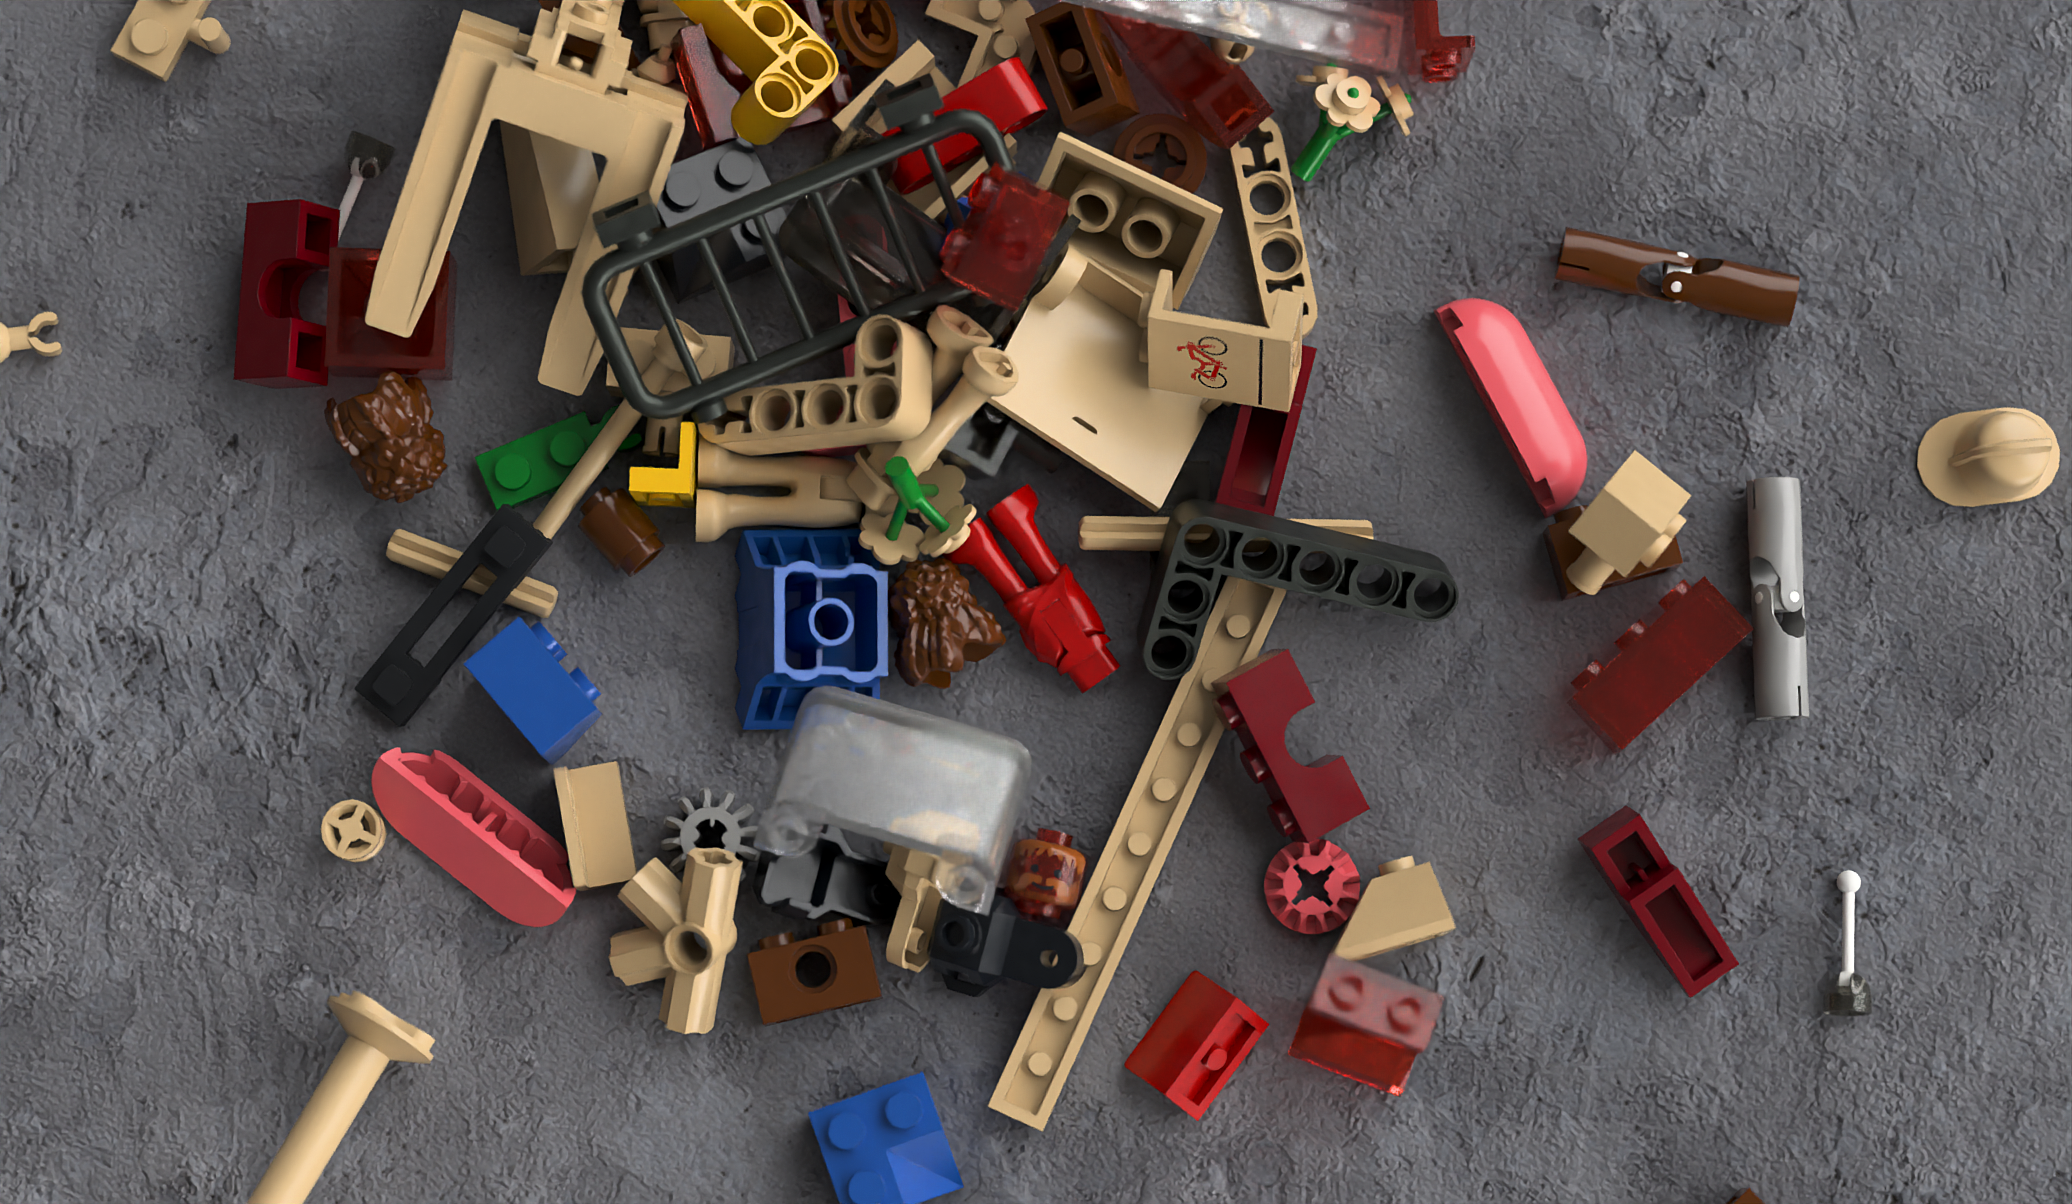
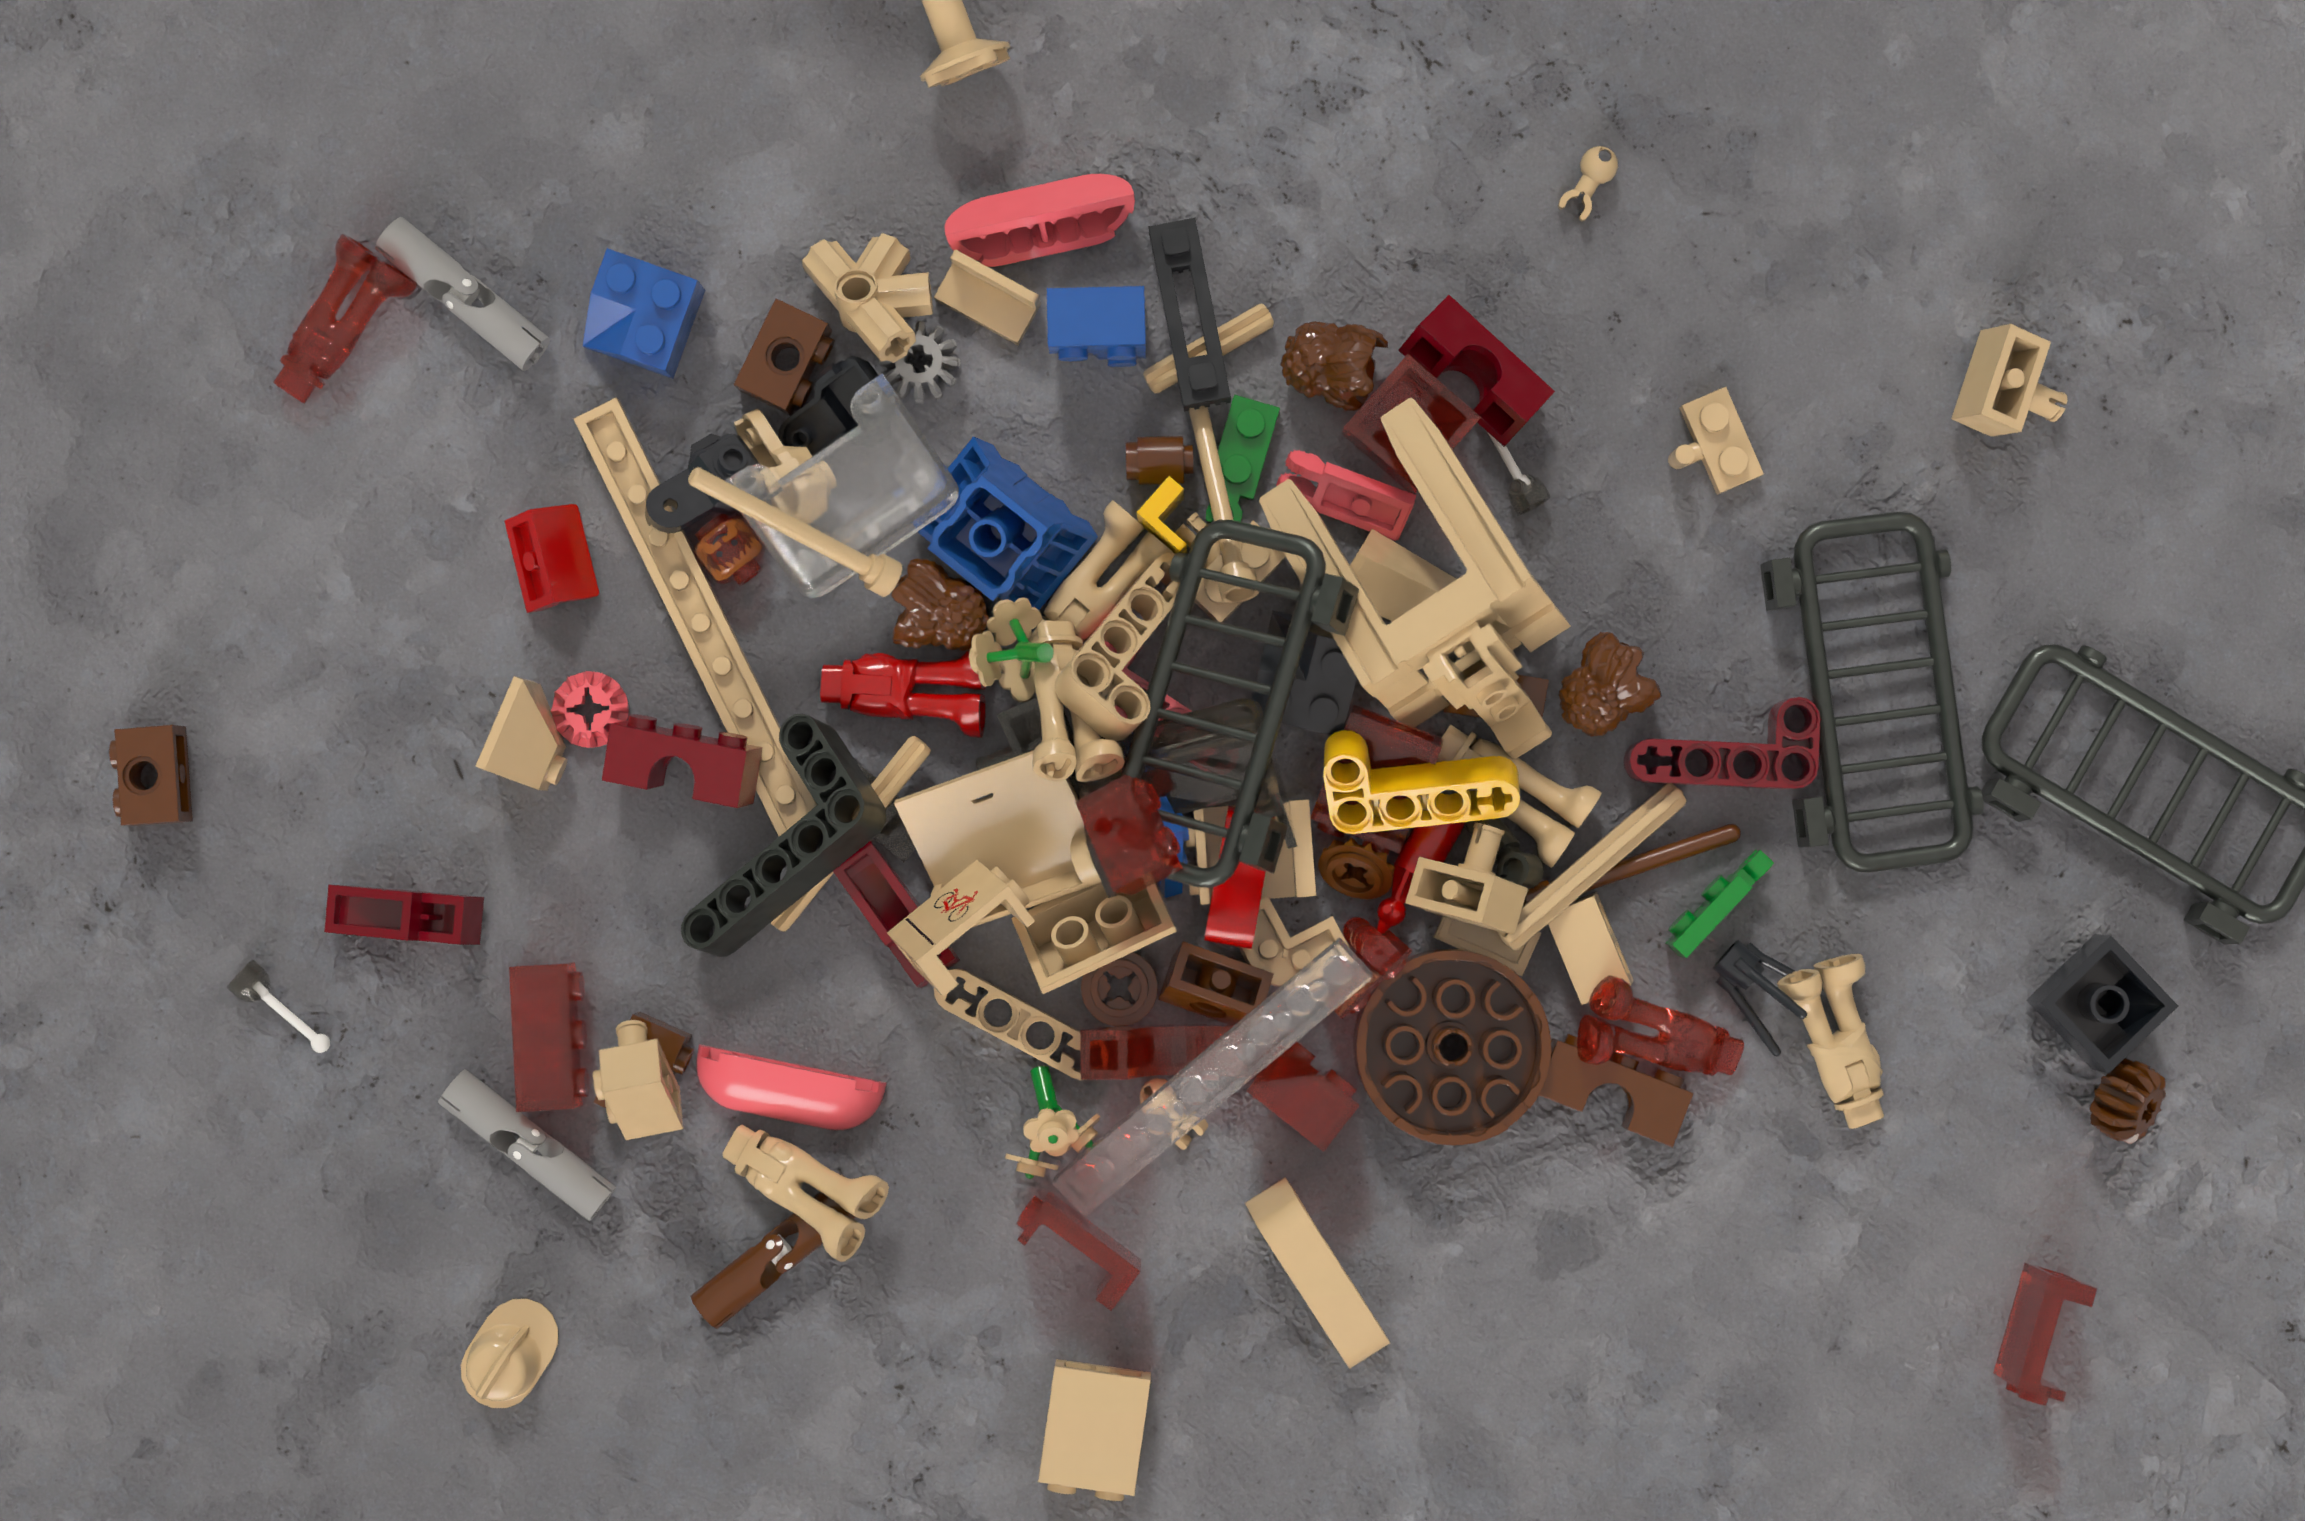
camera: 135 degrees right, 5 degrees up
(343, 825) = (1102, 138): tan wheel -> none
(506, 322) = (1350, 495): none -> coral hinge
(658, 67) = (1433, 719): tan rock -> none
(950, 702) = (877, 572): none -> tan piece
(1365, 1024) = (468, 665): clear red panel -> none
(1600, 334) = (782, 1168): none -> tan piece

